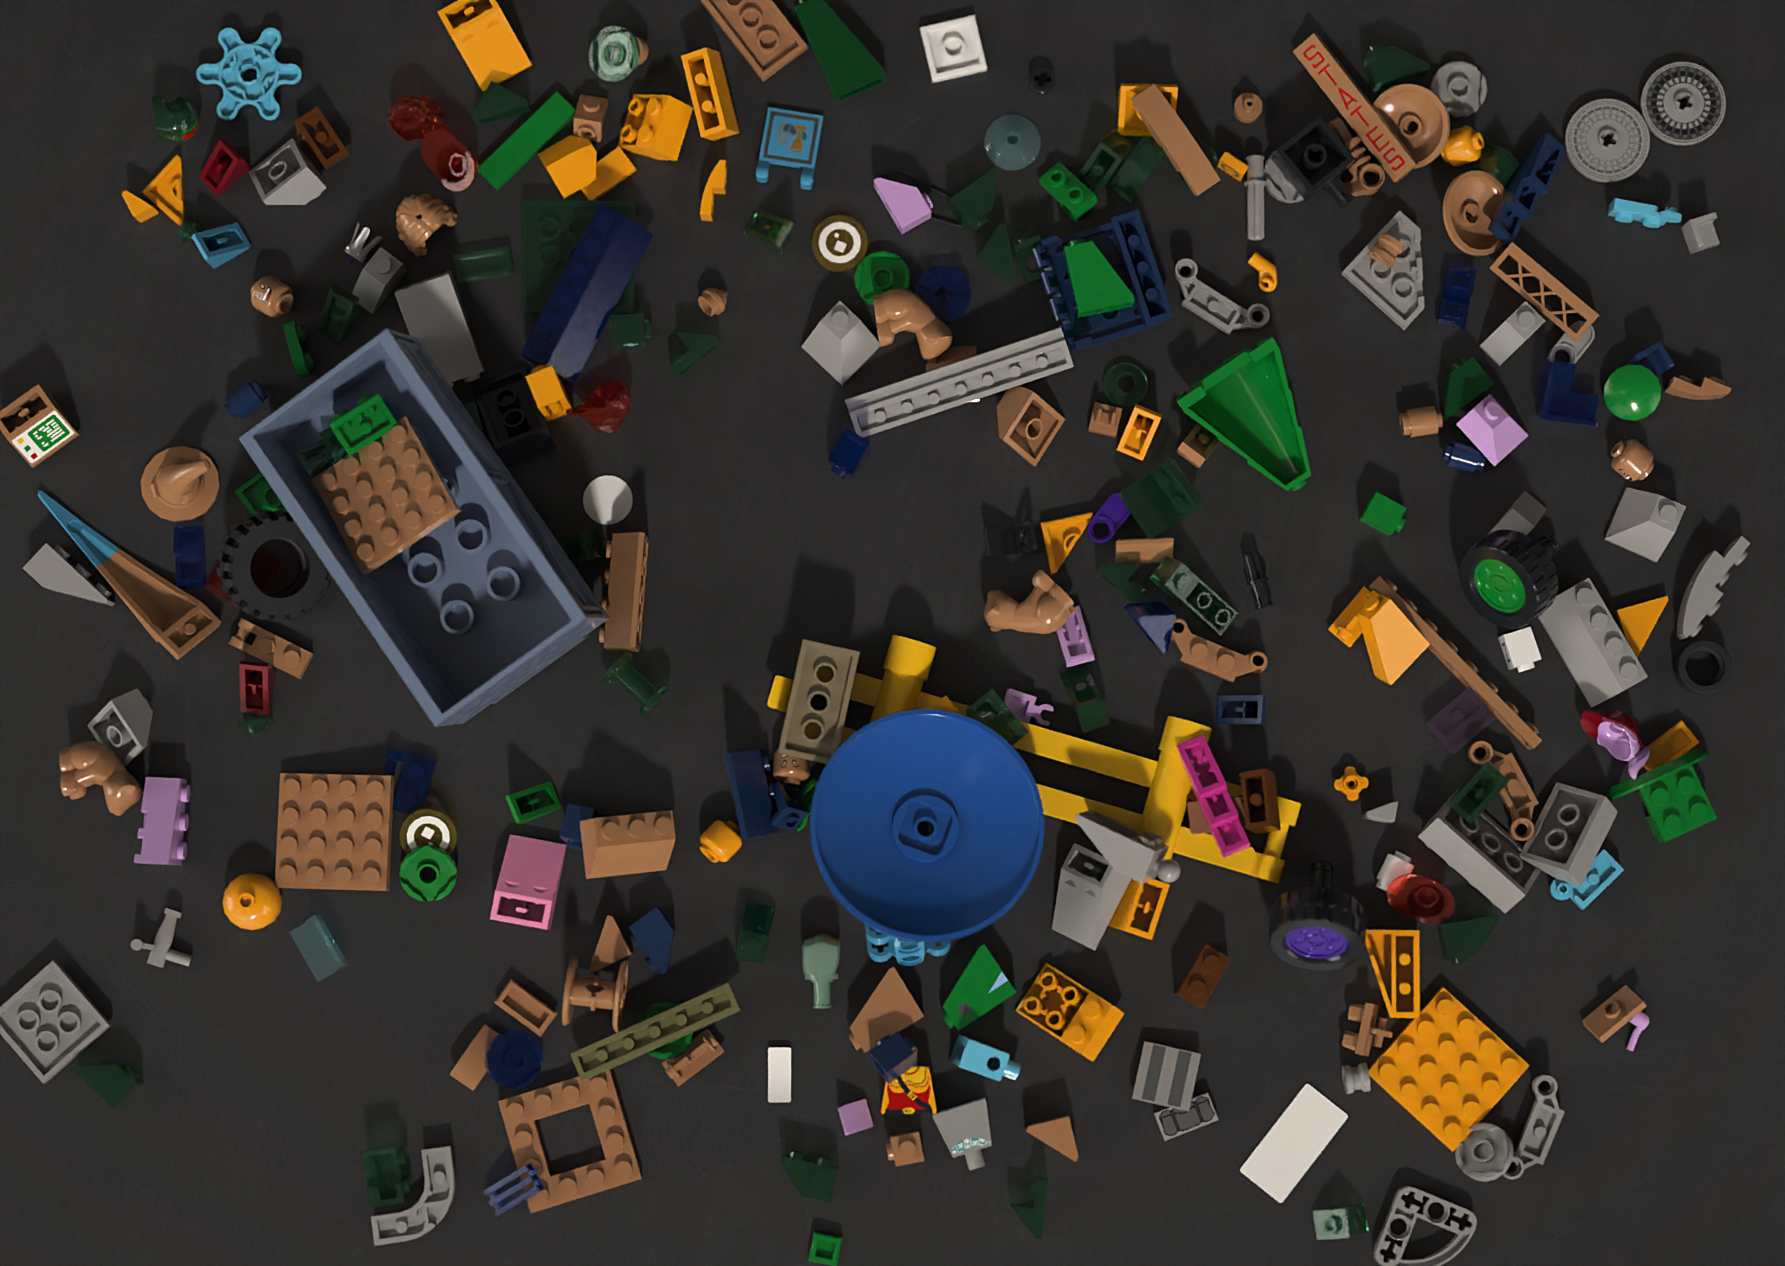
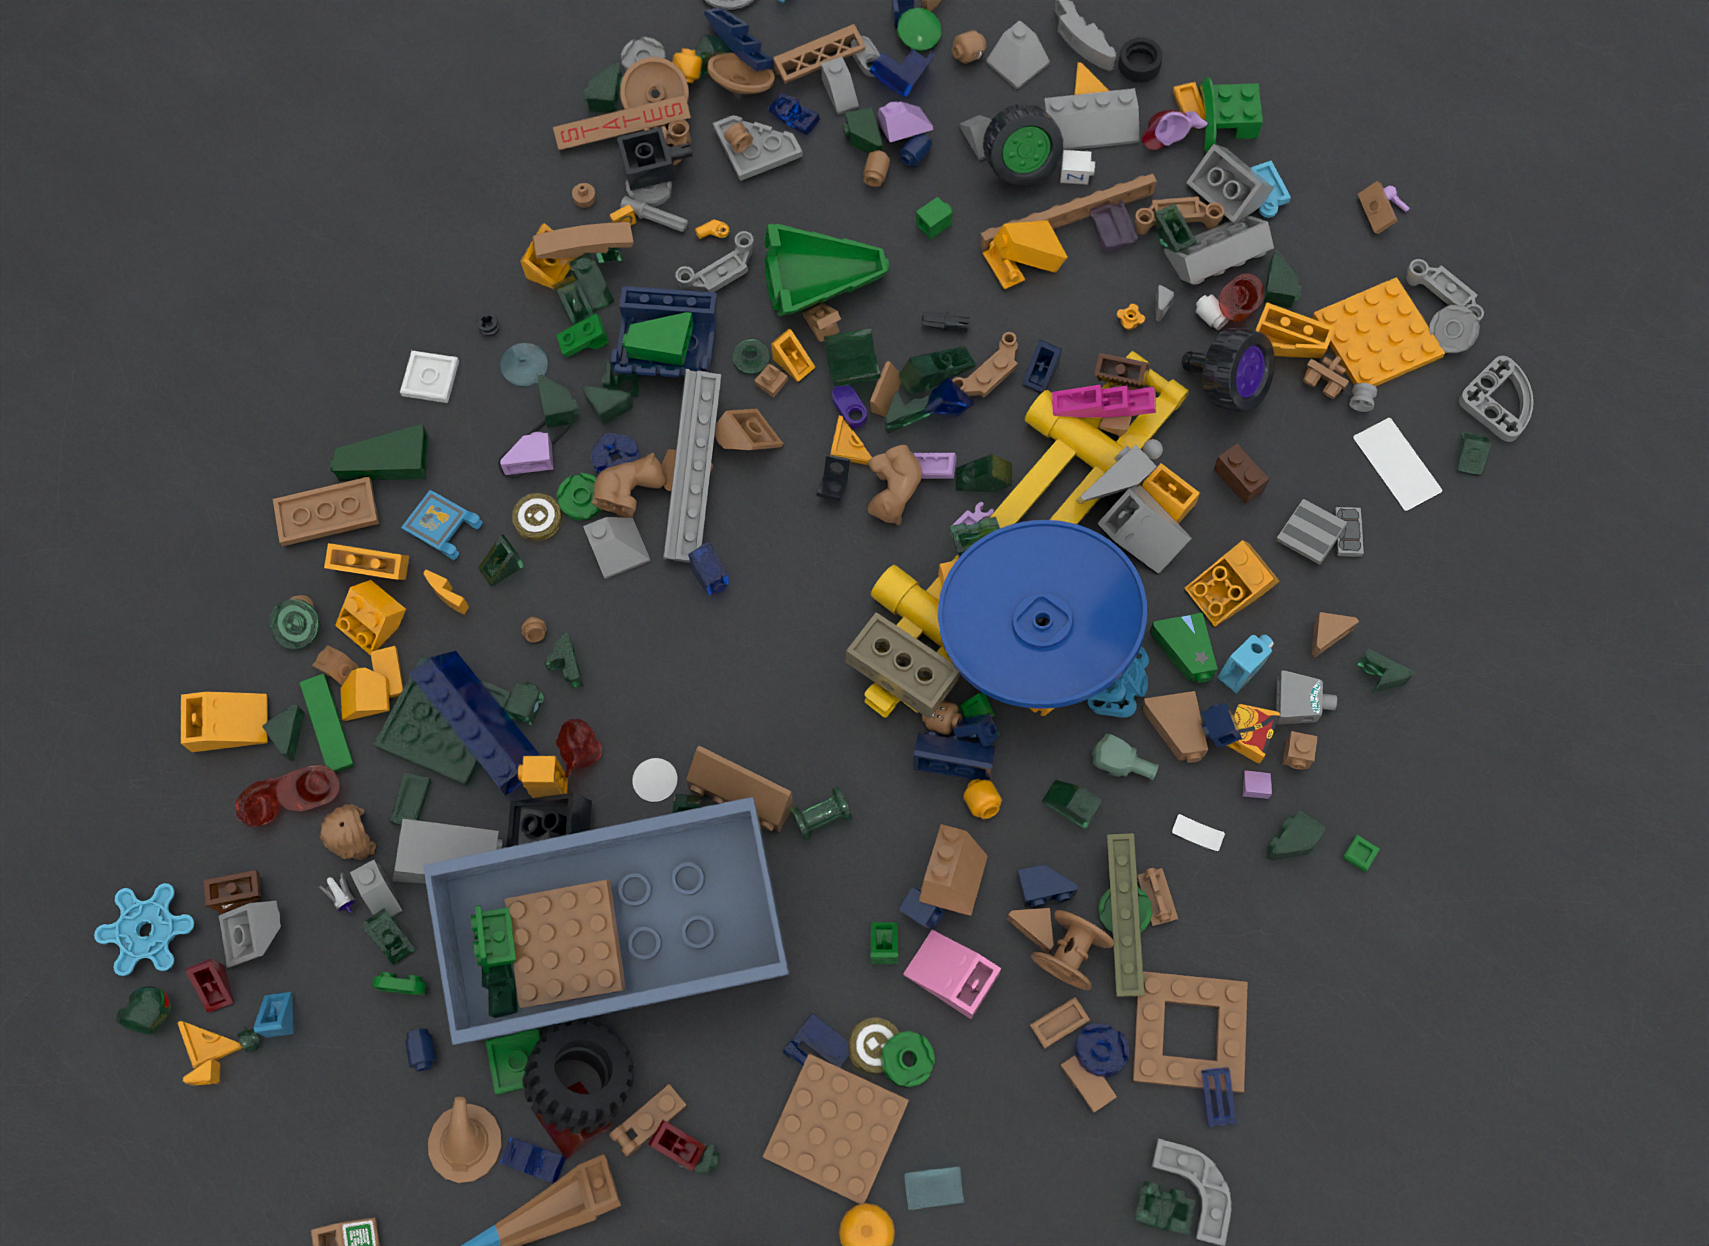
camera: 65 degrees left, 15 degrees down
(272, 296) = (343, 988): medium nougat head -> none

